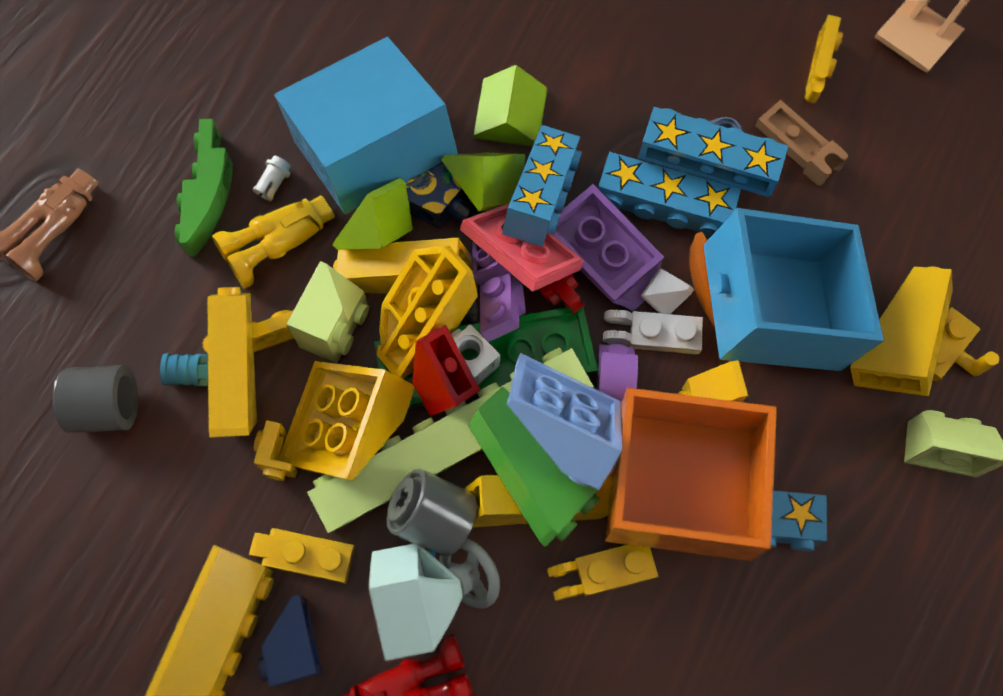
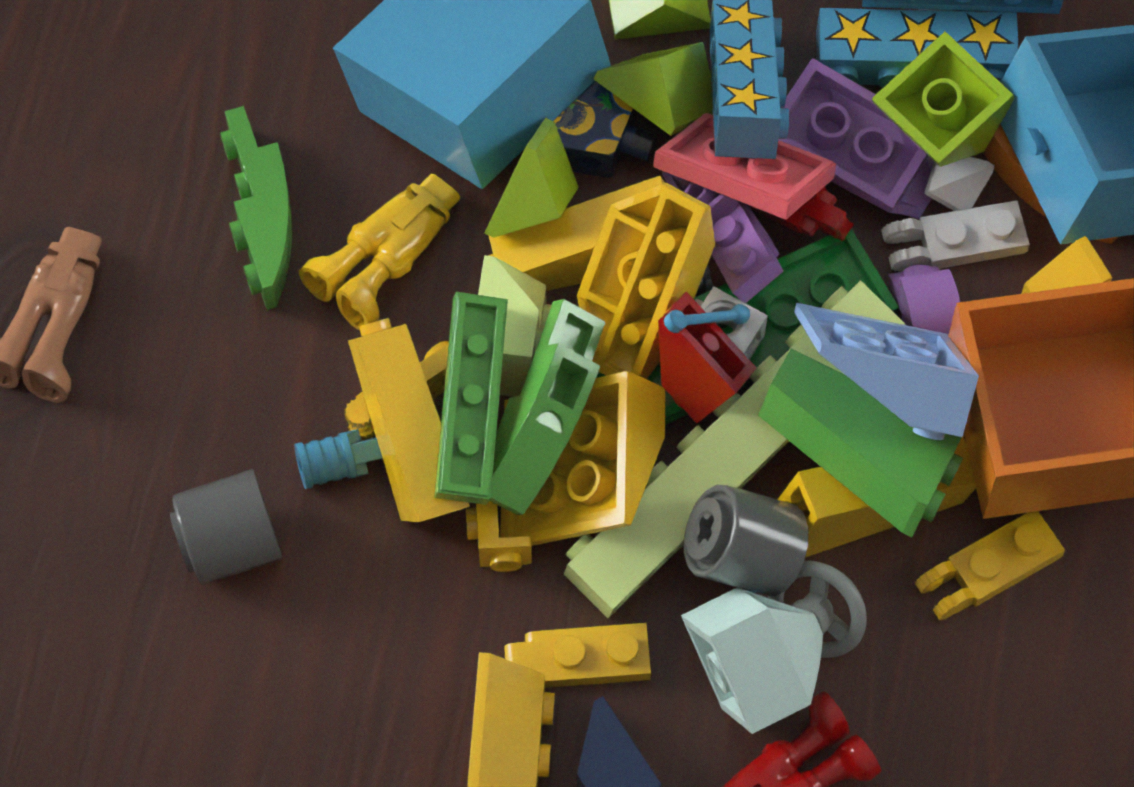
camera: 15 degrees left, 5 degrees down
(272, 177) = (352, 161): white pin -> none
(272, 360) = (471, 398): none -> bright green tile
(326, 378) = (549, 406): none -> bright green slope
(427, 345) = (677, 321): none -> dark azure hinge
(671, 238) = (946, 102): none -> lime slope

